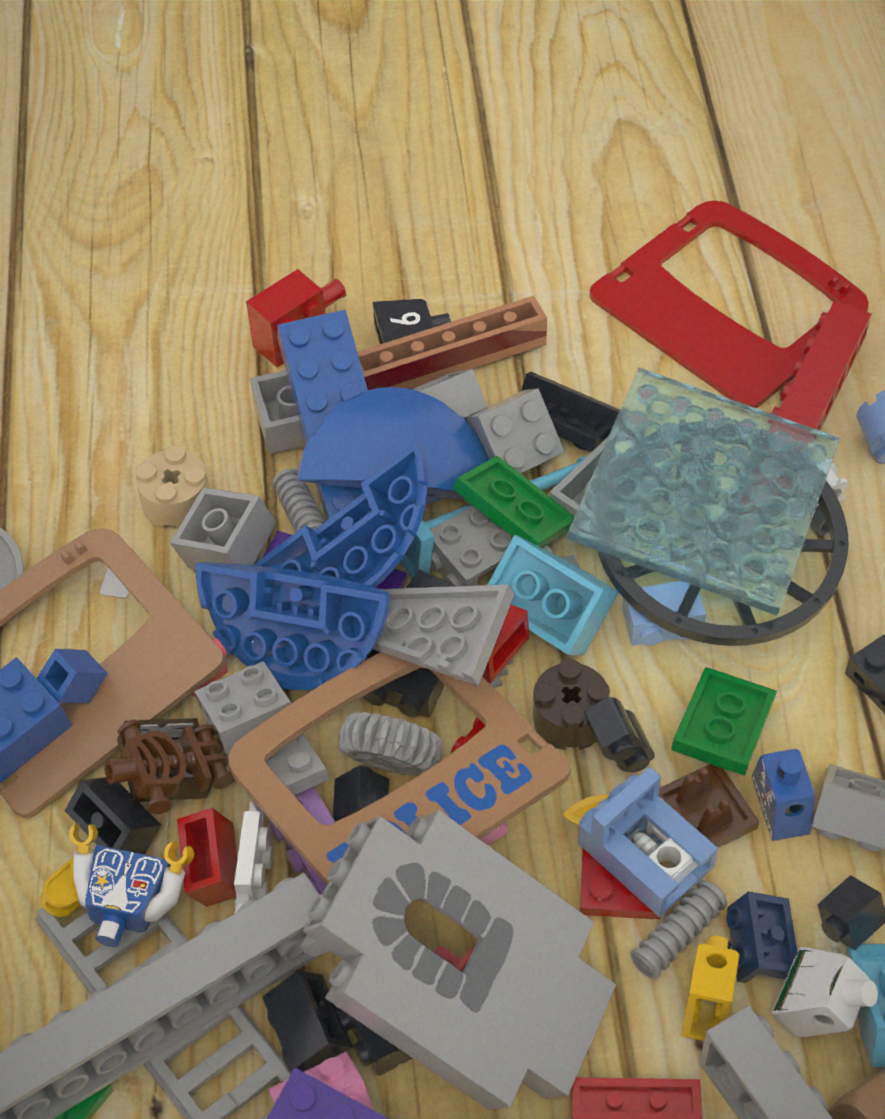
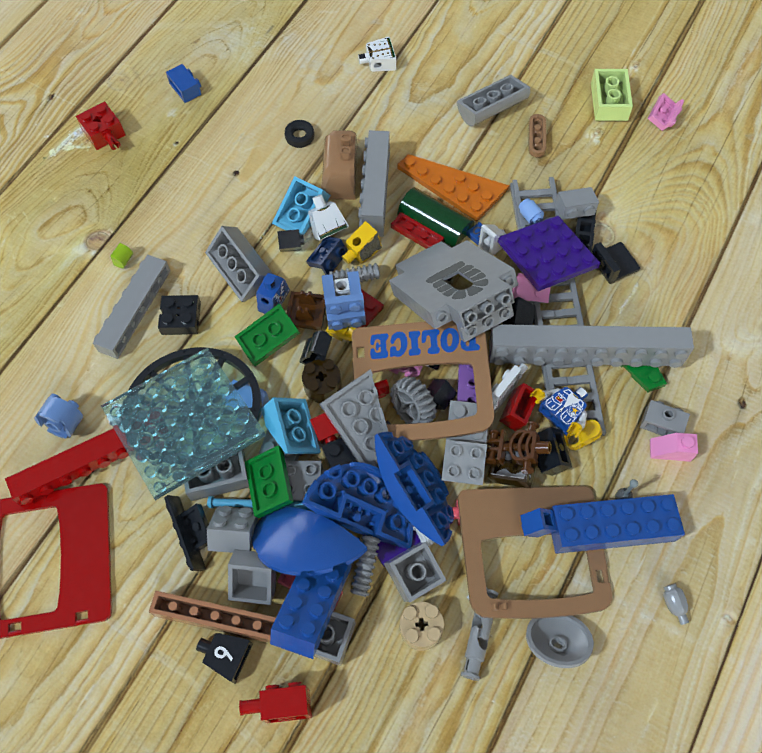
camera: 145 degrees left, 10 degrees up
(83, 517) = (476, 650): none -> light grey piece

